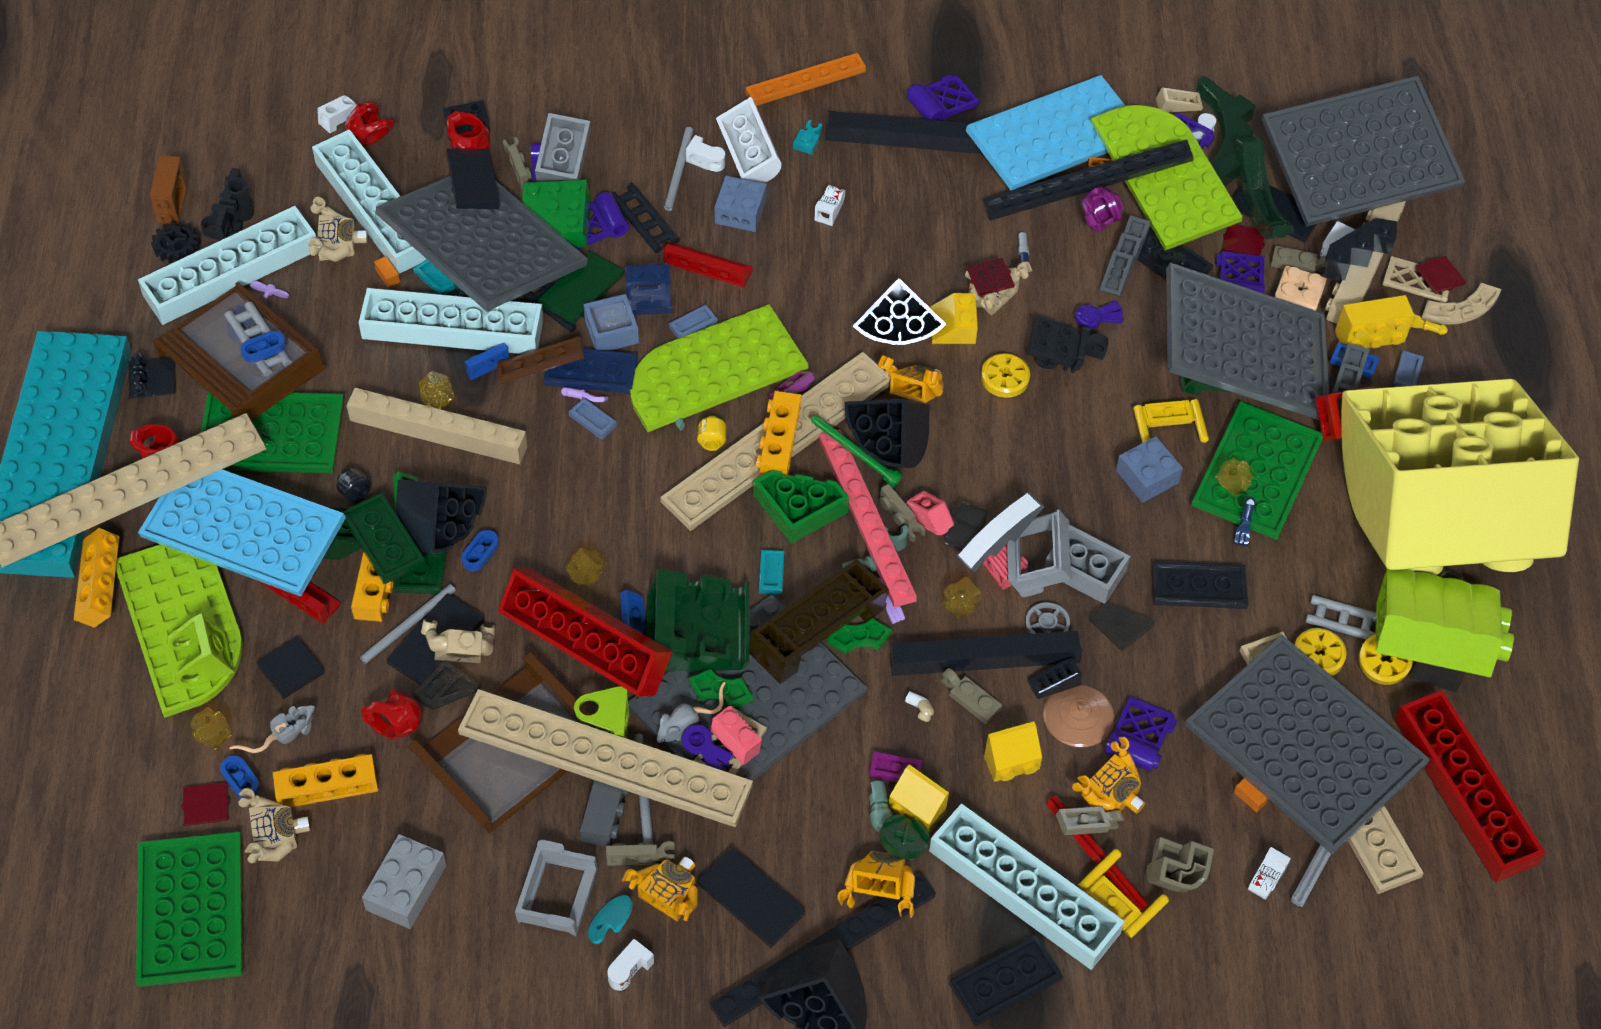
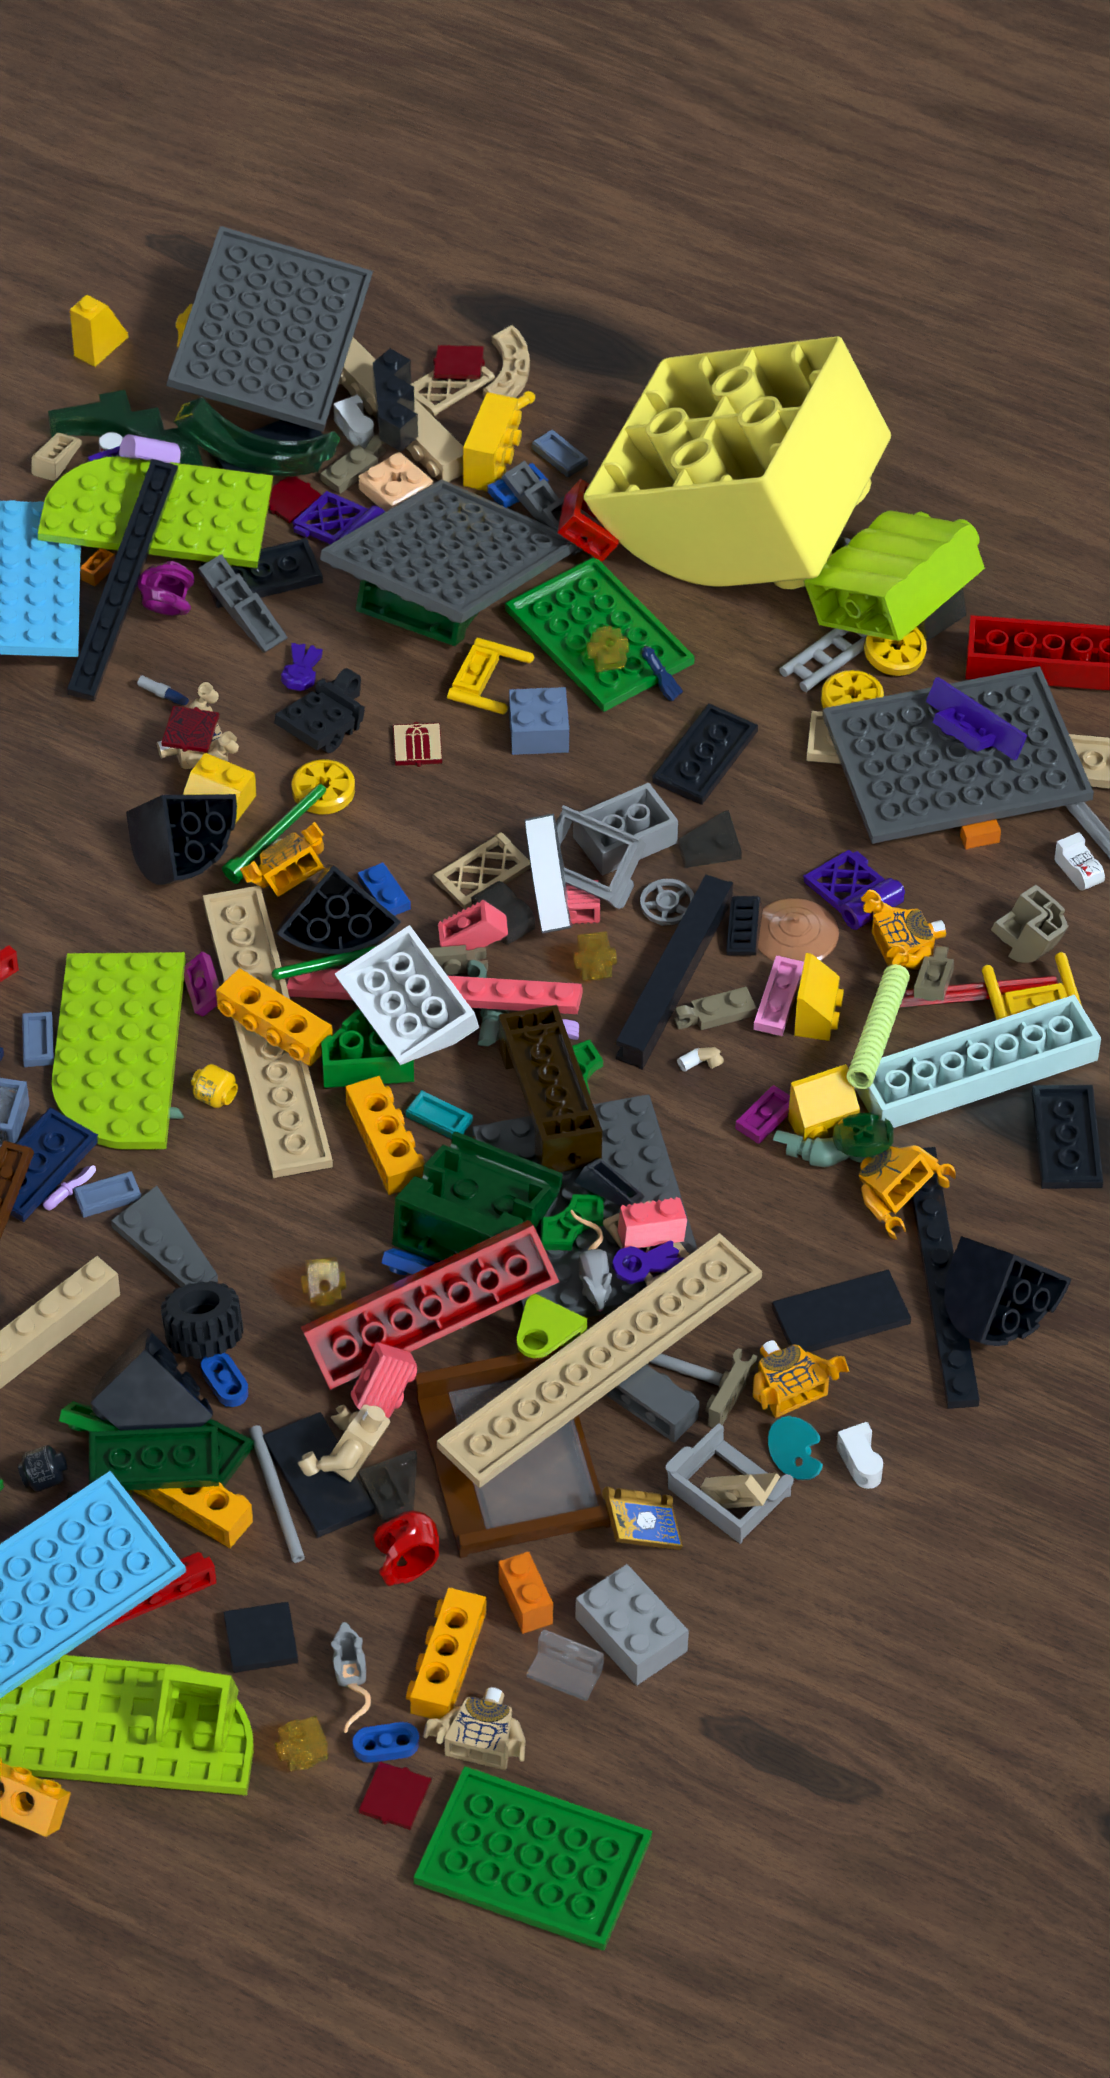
camera: 60 degrees left, 5 degrees down
(354, 858) = (566, 1665): none -> clear panel
(397, 804) = (525, 1592): none -> orange brick
(494, 848) = (642, 1518): none -> piece
(511, 513) = (202, 1319): none -> black tyre
(517, 637) = (384, 1378): none -> coral brick
(551, 902) = (740, 1489): none -> tan panel
(573, 467) = (163, 1239): none -> dark grey wing
(748, 520) = (384, 1133): none -> light orange brick
(755, 681) = (607, 1183): none -> black slope
(834, 499) = (408, 997): none -> white slope
(902, 360) = (232, 867): none -> green piece
(941, 451) = (384, 888): none -> blue plate
(975, 477) = (510, 853): none -> tan window
(981, 729) = (779, 996): none -> bright pink plate
(1004, 800) = (878, 1026): none -> yellowish green piece
(1083, 411) = (417, 744): none -> piece
(1203, 139) = (148, 449): none -> lavender brick
(1294, 66) = (95, 330): none -> yellow slope
(1331, 735) = (972, 722): none -> dark purple bracket

